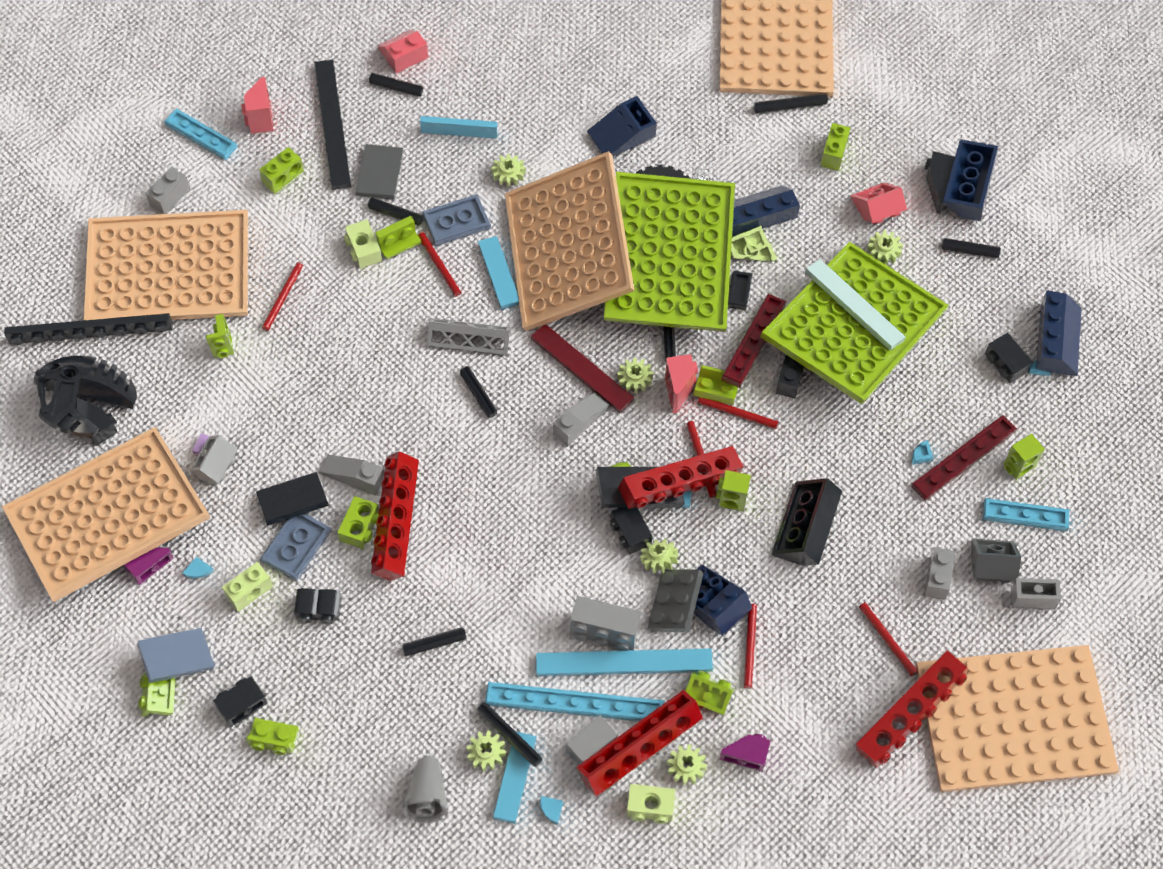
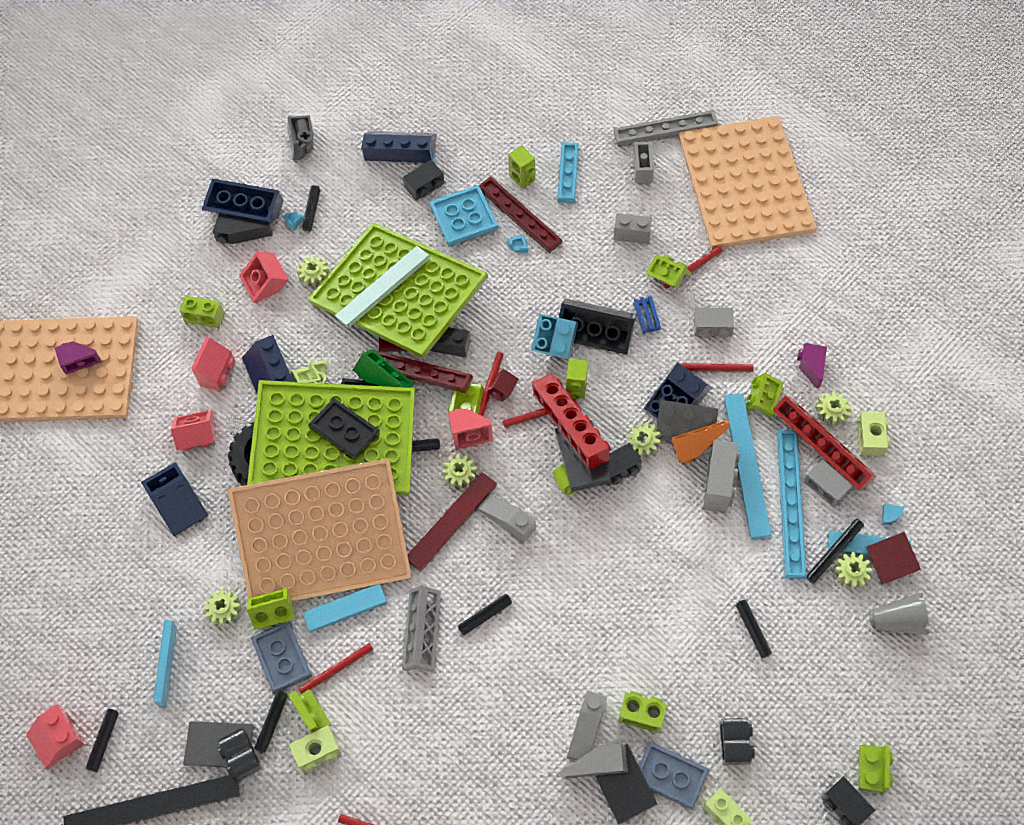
camera: 90 degrees left, 0 degrees up
(312, 480) = (600, 761): none -> light grey slope
(364, 182) = (239, 754): none -> black brick
(394, 516) = (634, 676): red brick -> none
(495, 795) = (893, 558): none -> dark red tile
(500, 206) = (269, 605): none -> lime brick
(647, 597) = (695, 442): none -> orange slope
(676, 258) = (344, 429): none -> black tile
(698, 143) = (193, 430): none -> coral slope
(732, 420) = (502, 385): none -> dark red brick
(751, 305) = (380, 372): none -> green slope
(769, 154) = (213, 365): none -> coral slope
(781, 38) = (75, 357): none -> magenta slope
(788, 473) = (554, 336): none -> medium azure slope
(791, 103) = (146, 352): black axle -> none
(807, 648) = (713, 322): none -> light grey brick
(823, 572) = (643, 302): none -> blue tile
(877, 604) = (667, 271): none -> lime bracket
(947, 666) = (760, 253): red brick -> none
(953, 230) = (293, 219): none -> medium azure tile
(960, 397) = (463, 215): none -> medium azure plate
(995, 560) = (613, 190): dark grey slope -> none
(1066, 235) = (300, 135): none -> dark grey piece
(1095, 630) = (664, 127): none -> light grey plate

